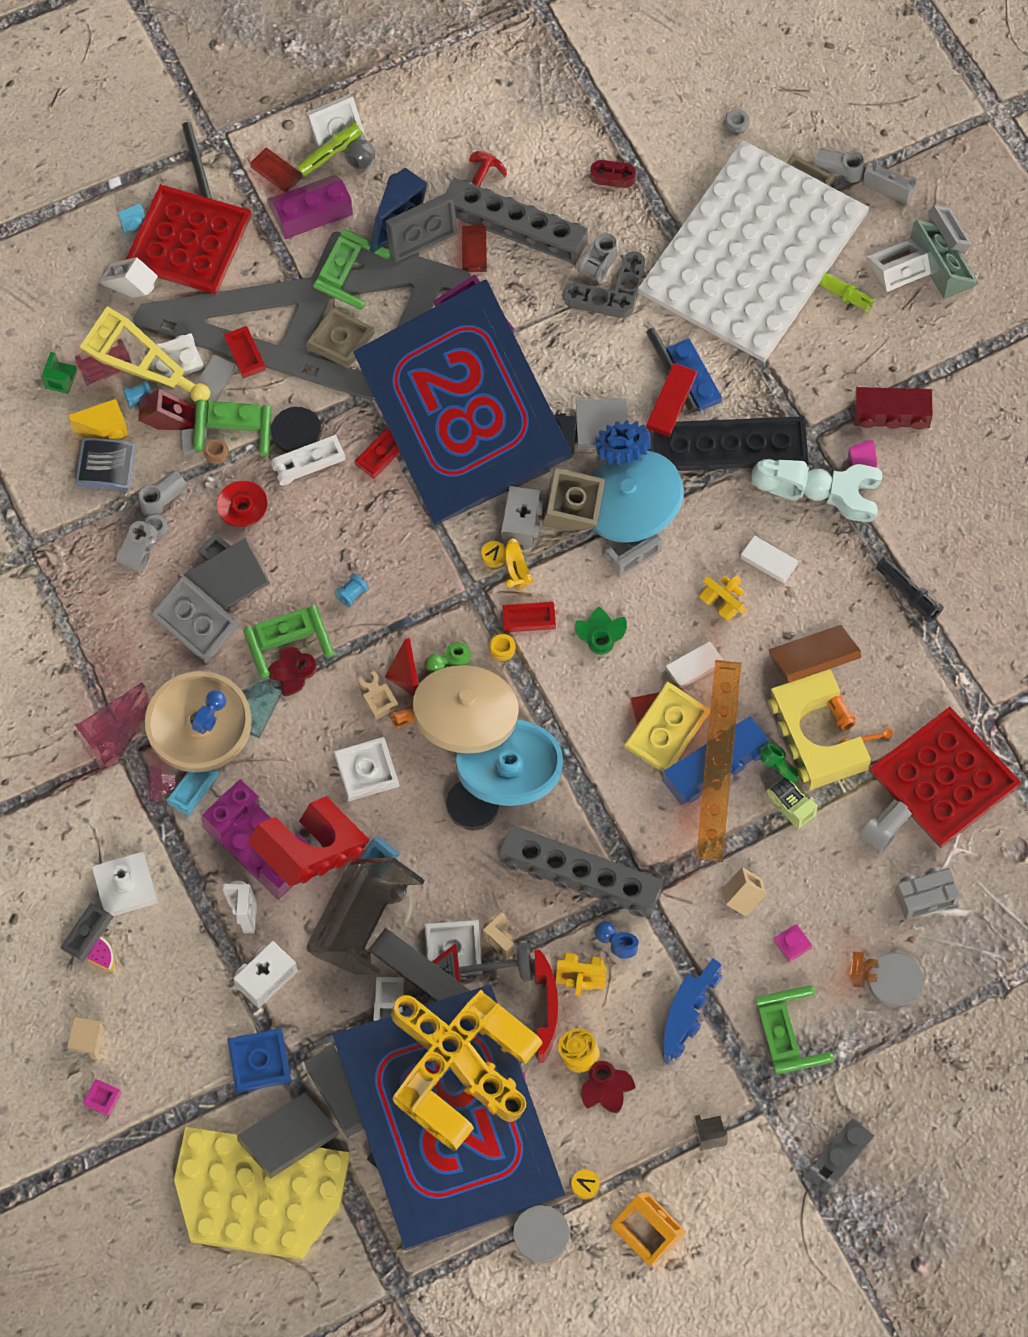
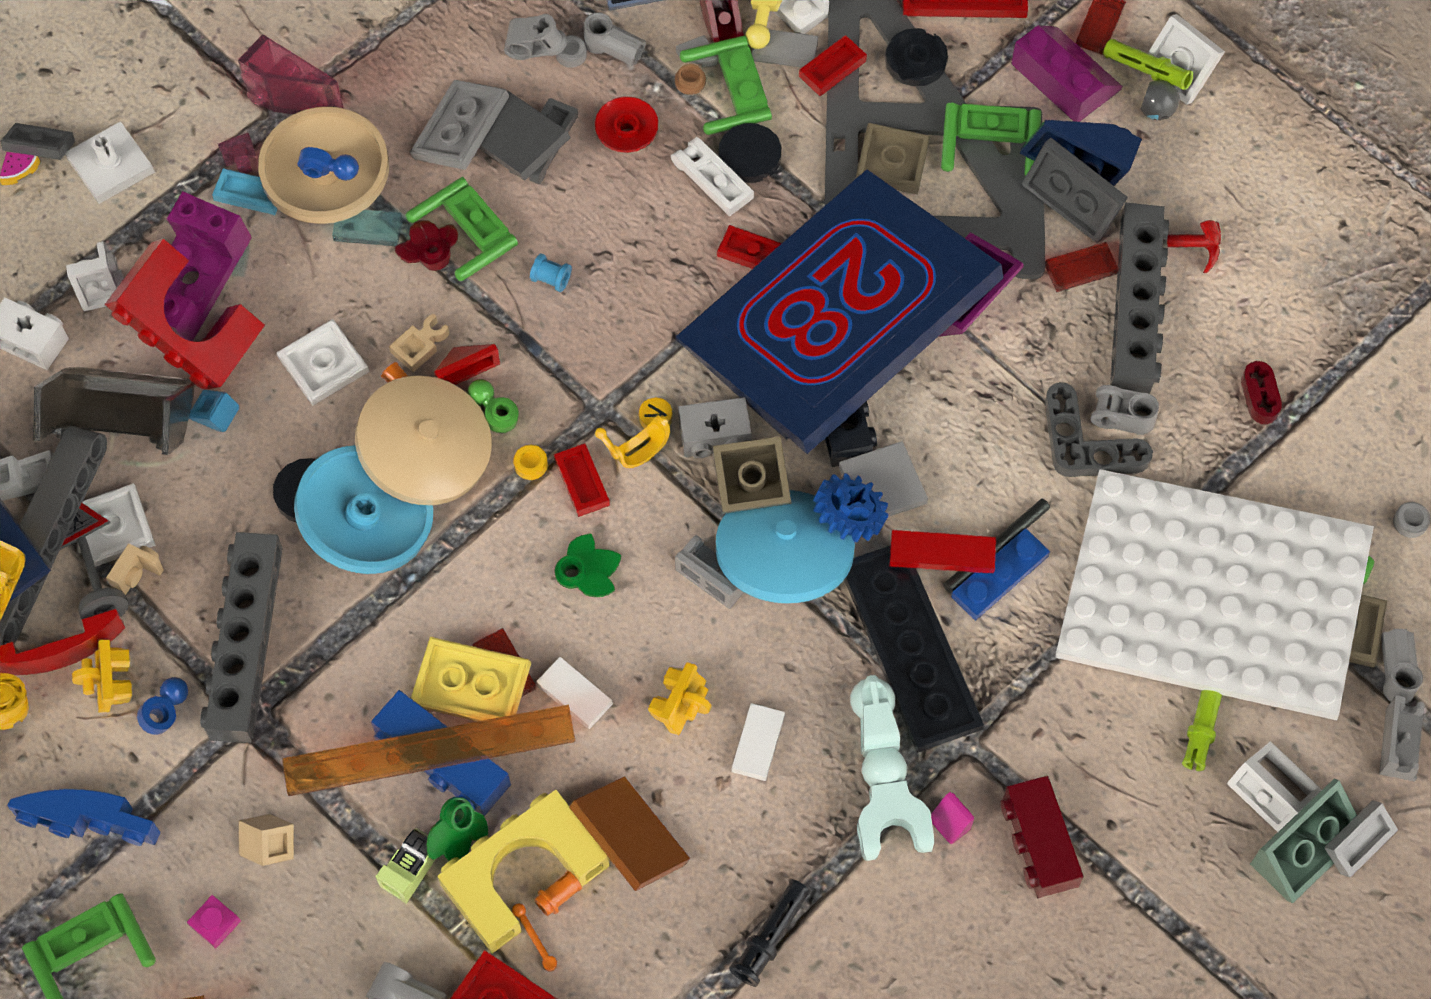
camera: 70 degrees right, 0 degrees up
(259, 295) = (916, 57): none -> black tile

